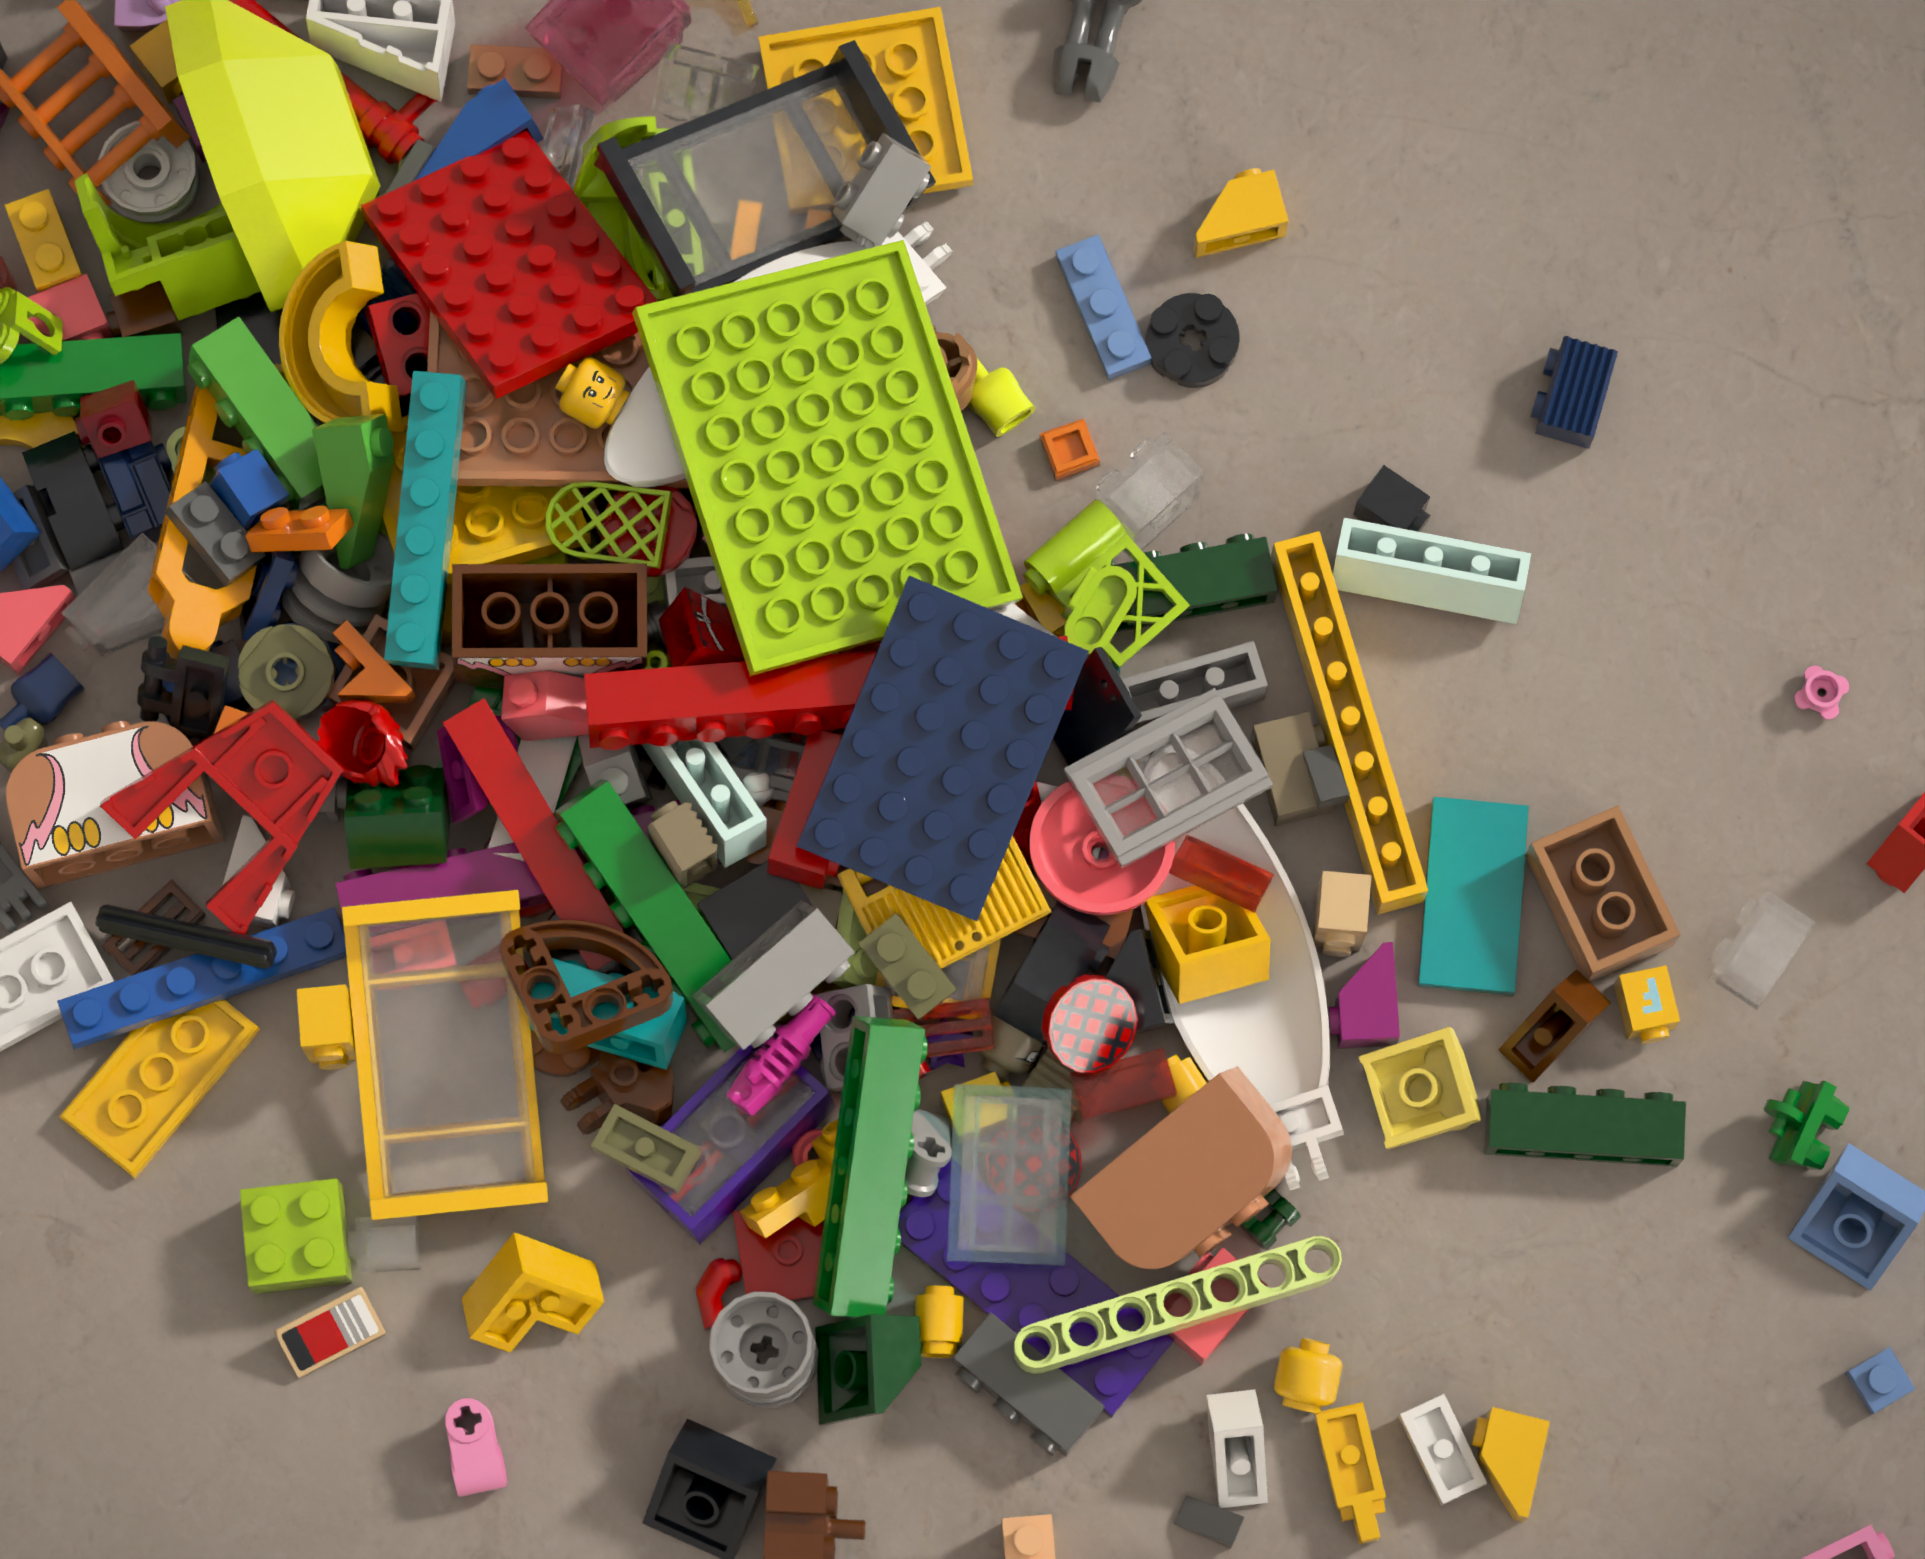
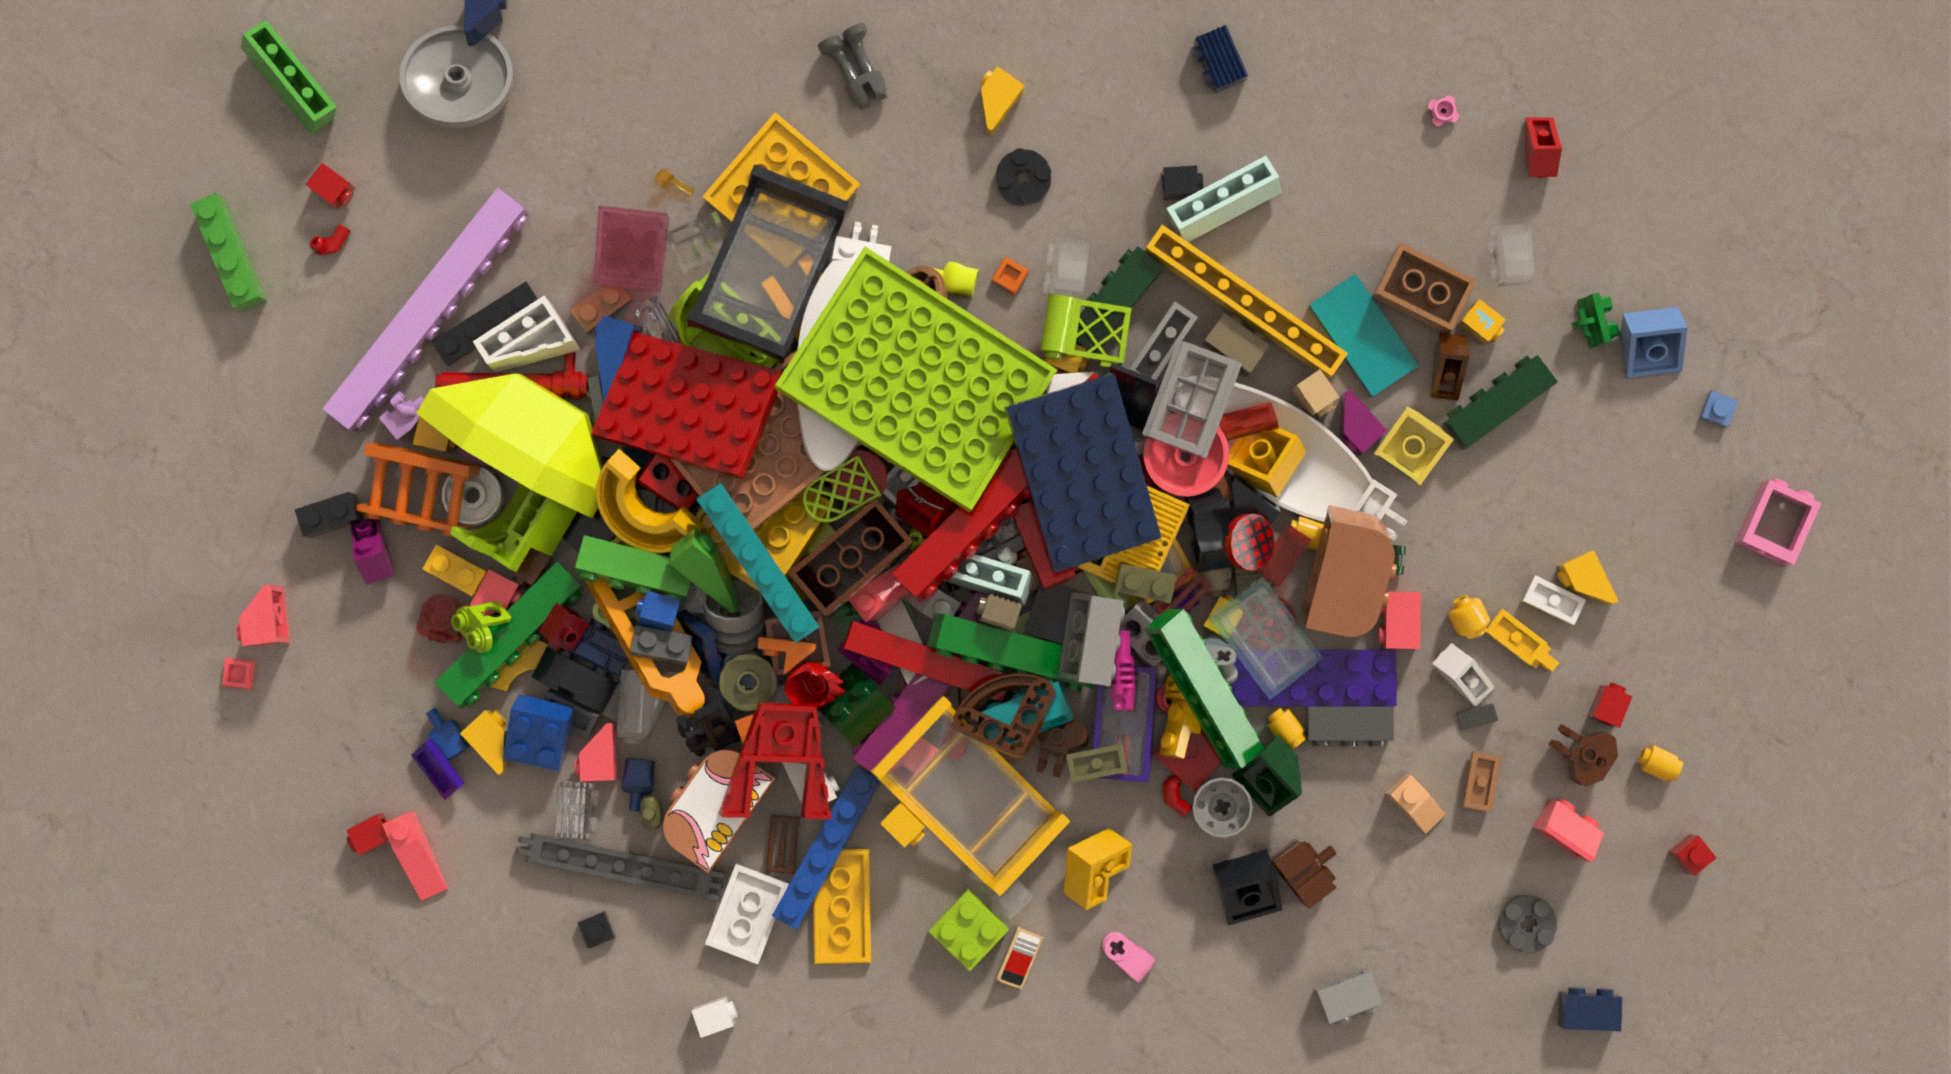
camera: 45 degrees left, 10 degrees up
(186, 936) = (804, 837): black axle -> none
(299, 529) = (701, 613): orange plate -> none
(592, 393) = (783, 438): yellow head -> none
(880, 191) = (830, 228): light grey brick -> none
(1098, 607) = (1094, 346): lime bracket -> none
(1103, 307) = (969, 195): medium blue plate -> none
(1194, 1287) = (1403, 629): yellowish green beam -> none
(1326, 777) = (1257, 337): dark grey piece -> none

